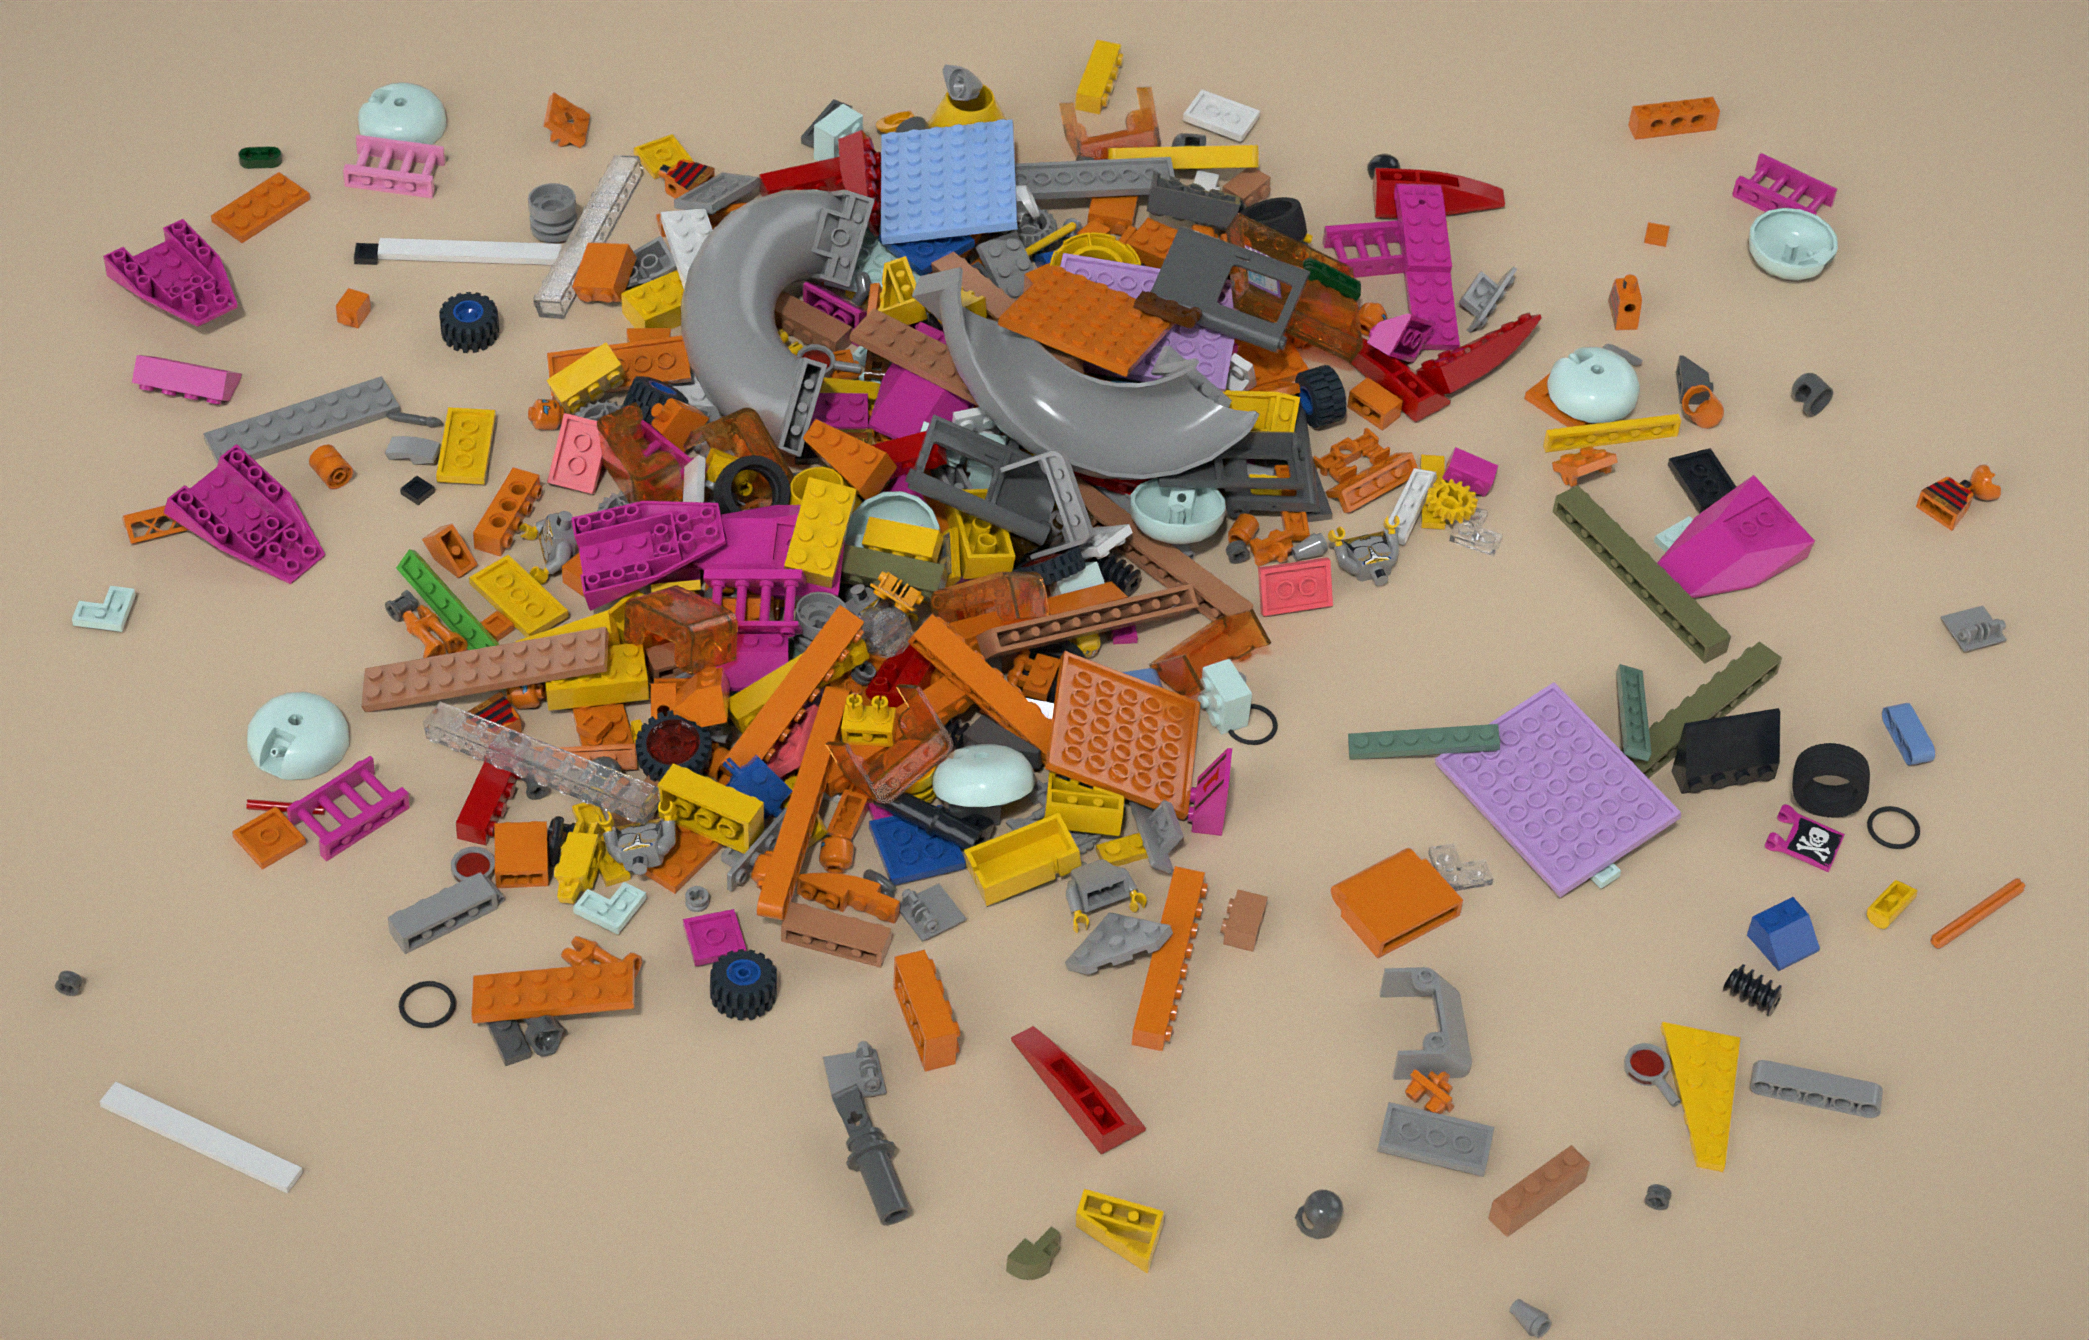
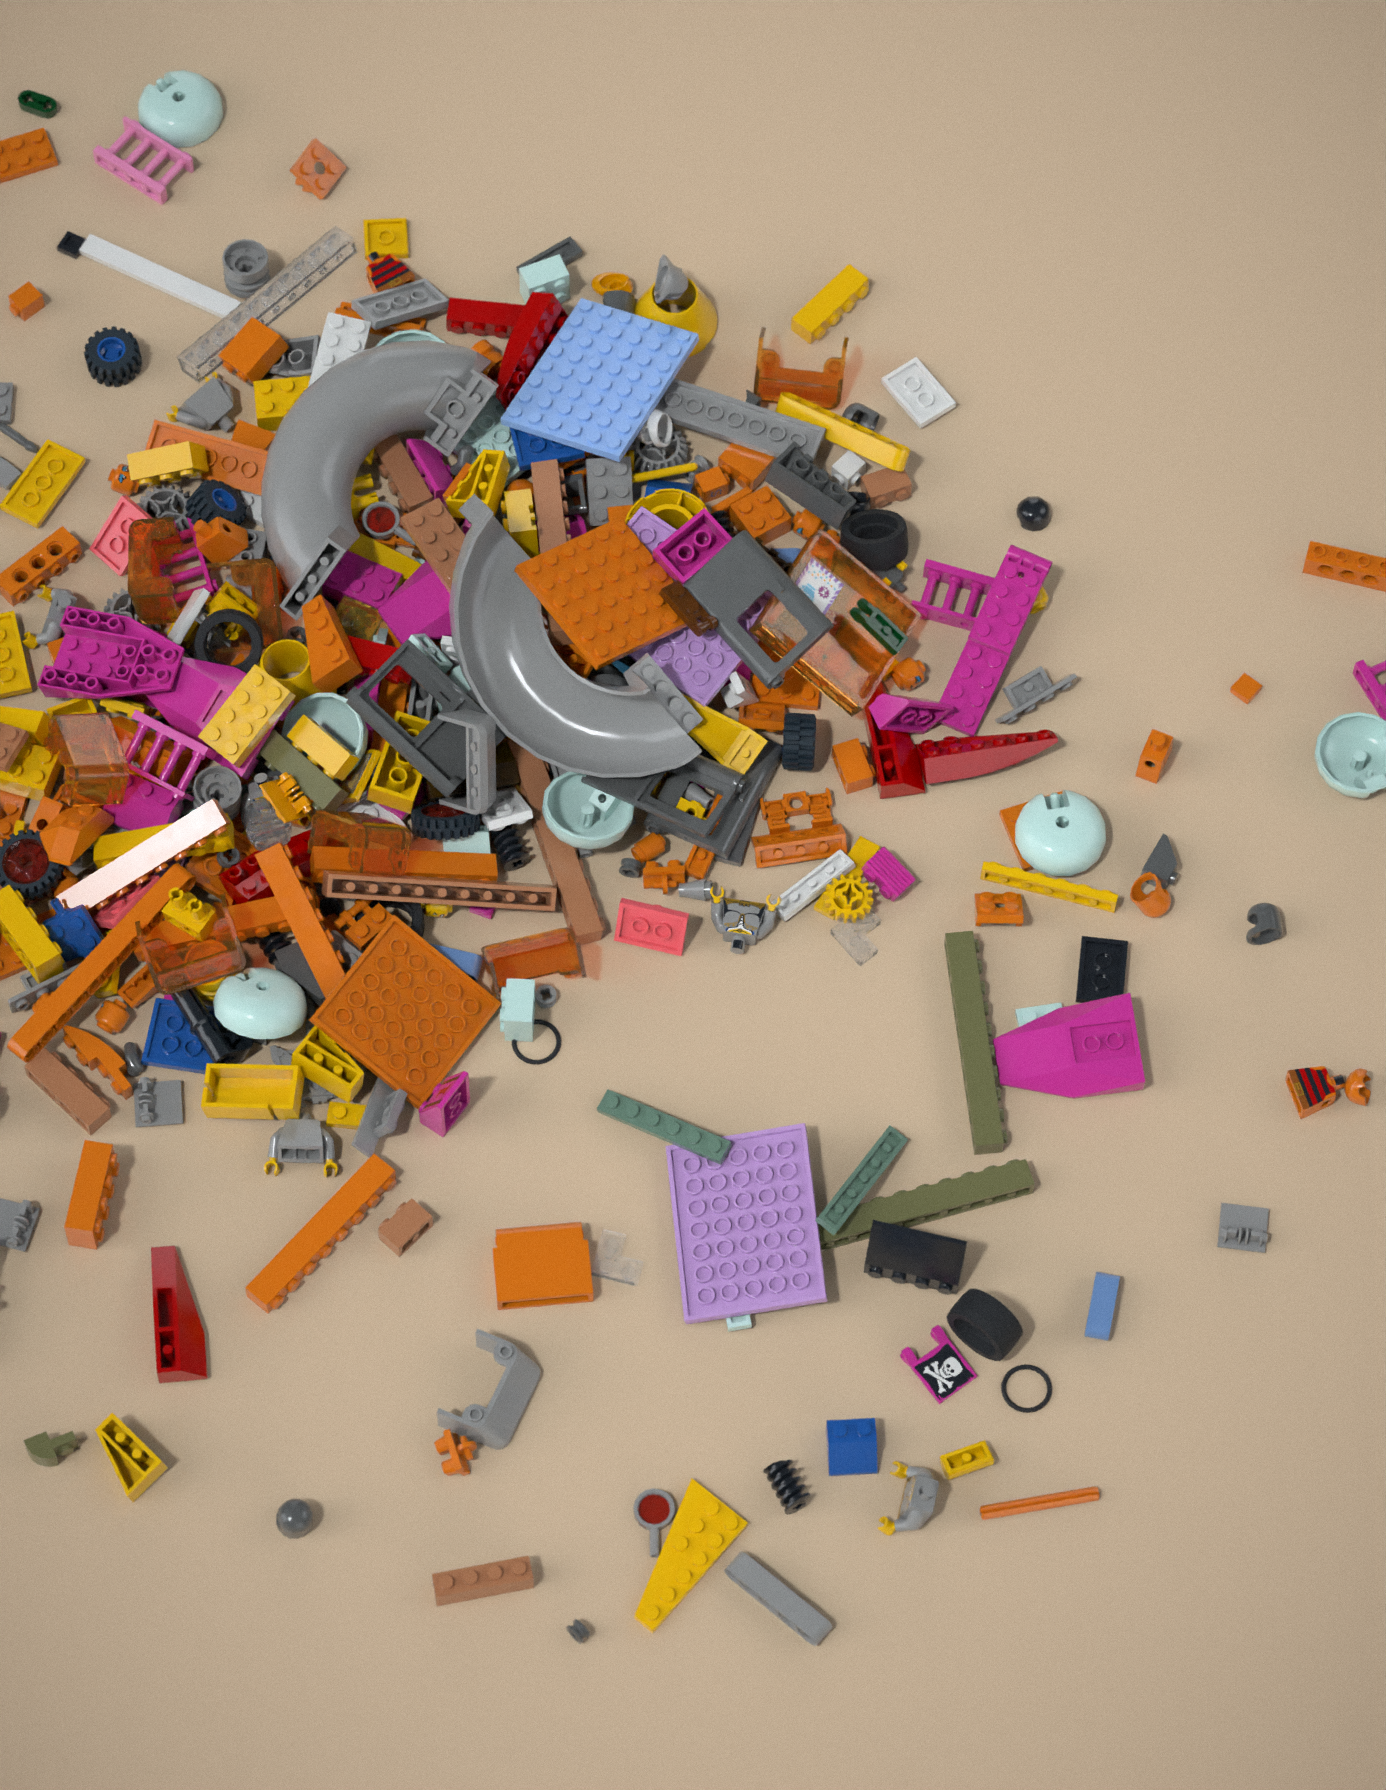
camera: 30 degrees right, 15 degrees up
(587, 328) = (206, 406): none -> light grey torso
(1116, 941) = (284, 1200): light grey plate -> none
(1138, 261) = (691, 546): none -> dark pink slope
(1436, 1139) = (432, 1495): light grey plate -> none
(1459, 192) = (1071, 565): red wedge -> none
(1532, 1319) = (404, 1687): light grey cone -> none
(1624, 353) = (1118, 807): light grey piece -> none
(1877, 950) = (916, 1502): none -> light grey torso

